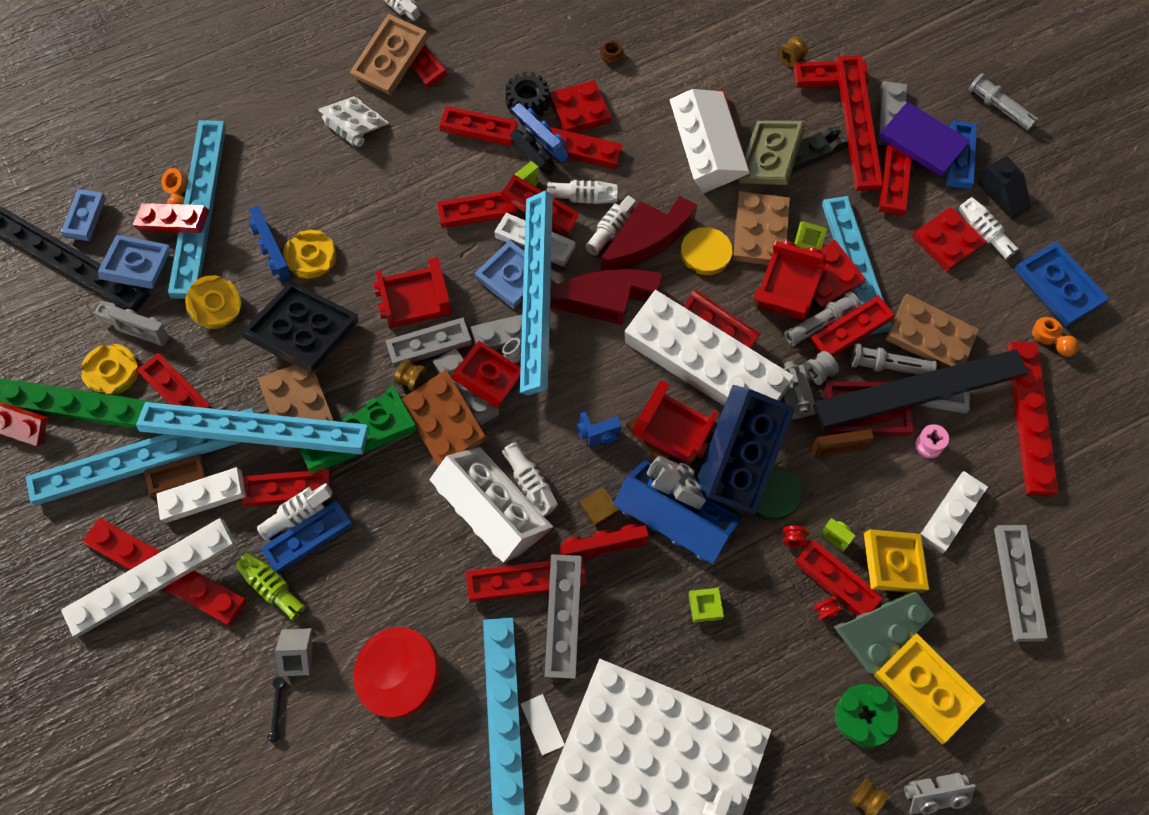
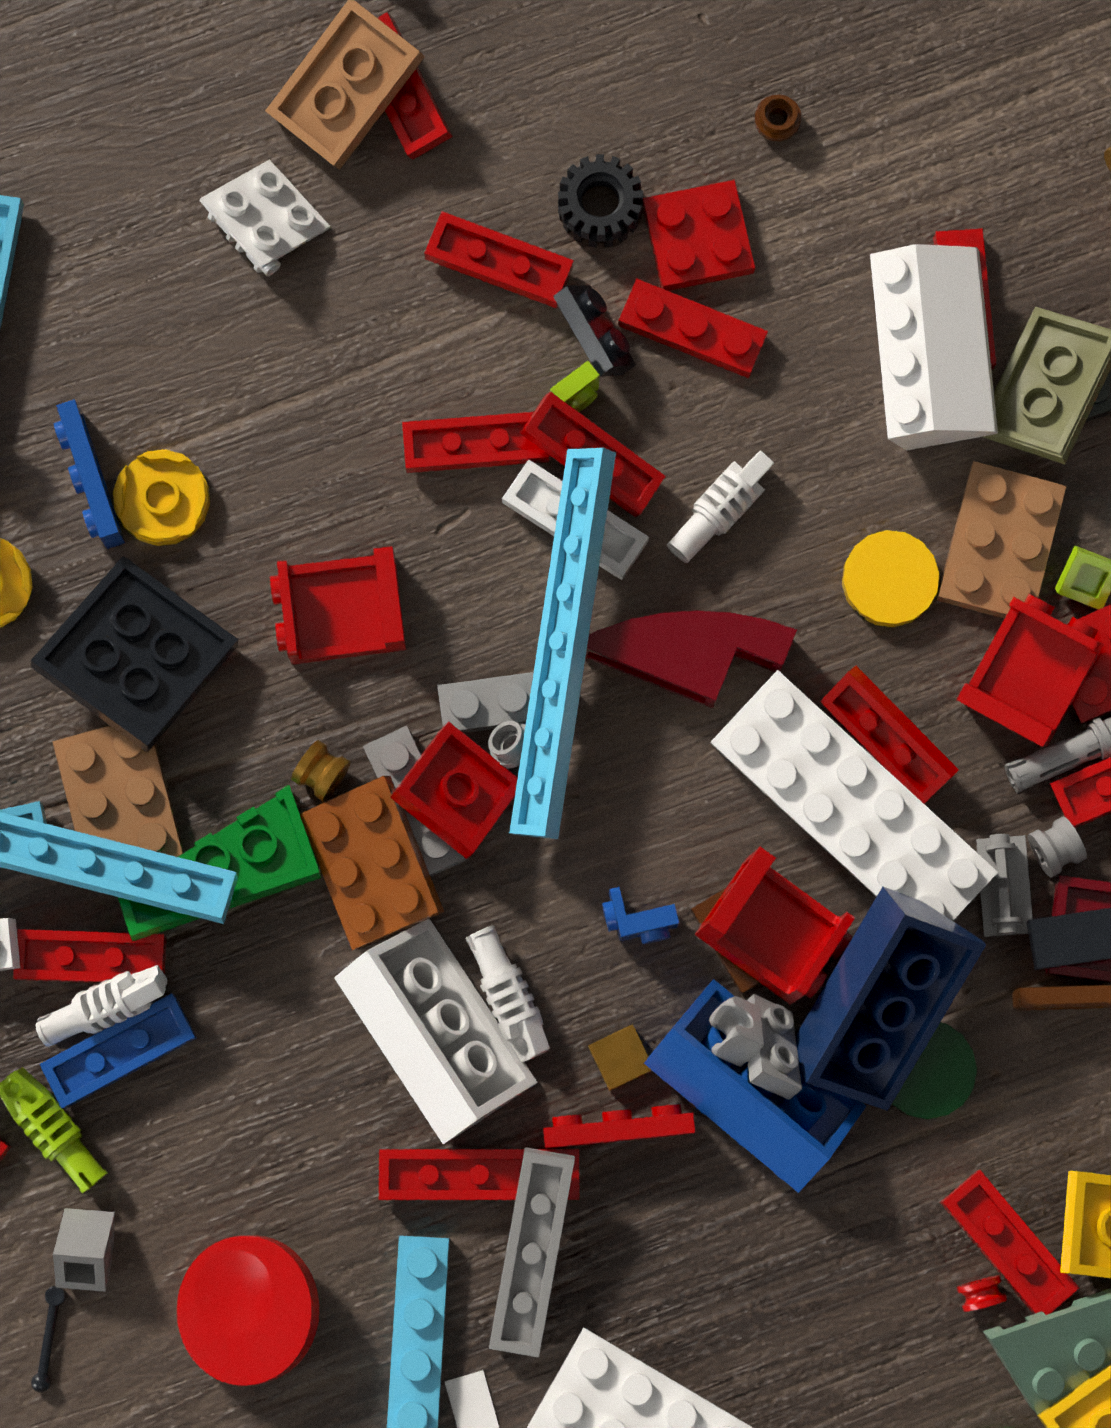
camera: 10 degrees right, 15 degrees up
(429, 342) = (359, 708): light grey plate -> none
(504, 274) = (512, 585): medium blue plate -> none
(542, 132) = (615, 295): blue plate -> none
(584, 191) = (679, 428): white hinge -> none
(648, 234) = (785, 534): dark red slope -> none
(706, 605) = (776, 1259): lime plate -> none
(795, 536) = (950, 1159): red bush -> none
(837, 534) = (1024, 1164): lime plate -> none

